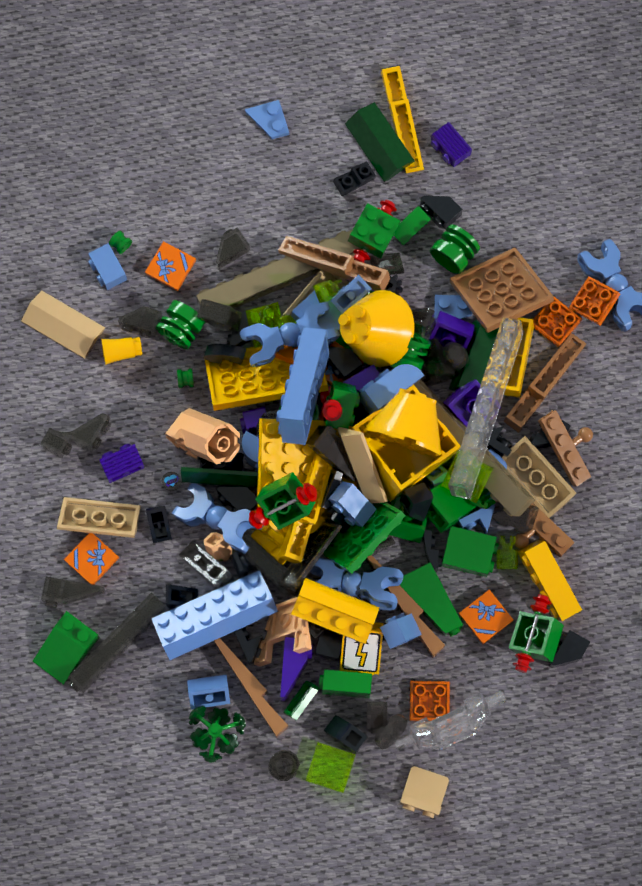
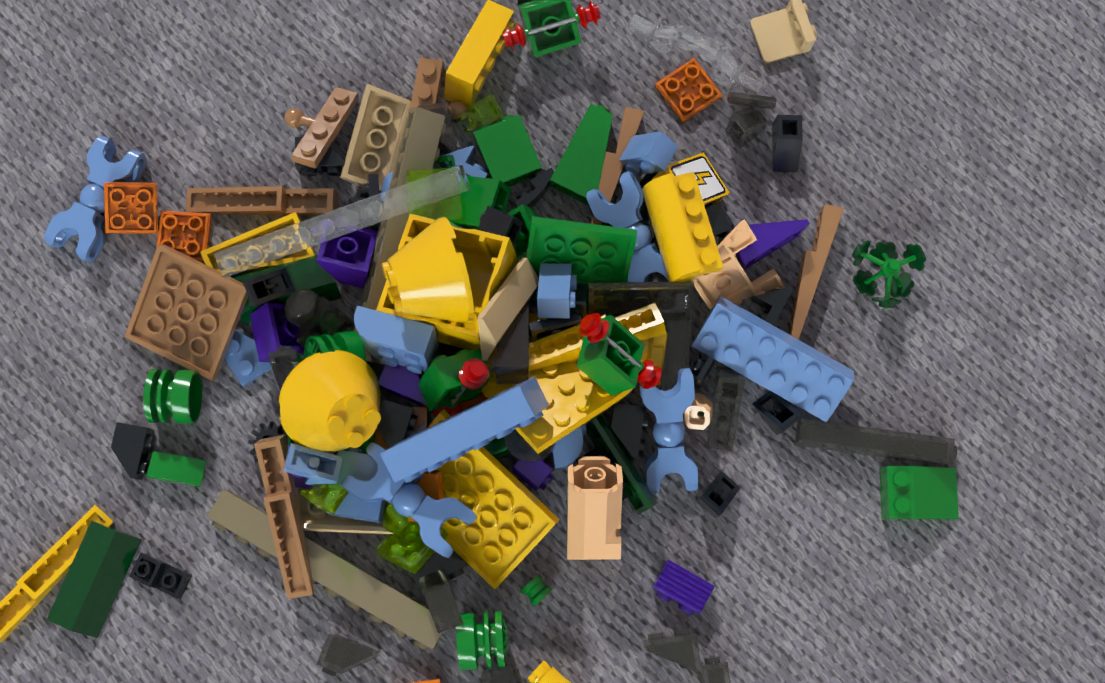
camera: 130 degrees left, 5 degrees up
(64, 592) = (866, 540): clear smoke slope -> none
(91, 558) = (808, 539): orange tile -> none
(99, 519) = (761, 565): tan slope -> none
(171, 481) = (660, 518): clear smoke tile -> none
(208, 691) = (852, 309): medium blue brick -> none
(217, 352) = (481, 569): black slope -> none
(276, 765) = (871, 187): clear smoke hair -> none
(301, 700) = (786, 210): green tile -> none
(330, 767) = (829, 138): clear neon green plate -> none
(346, 683) = (740, 175): green brick -> none
(374, 230) = (213, 498): green brick -> none
(390, 262) = (241, 462): clear smoke piece -> none
(450, 144) = (43, 494): dark purple brick -> none
(480, 341) = (268, 287): none -> black slope
(486, 617) = (562, 91): orange tile -> none

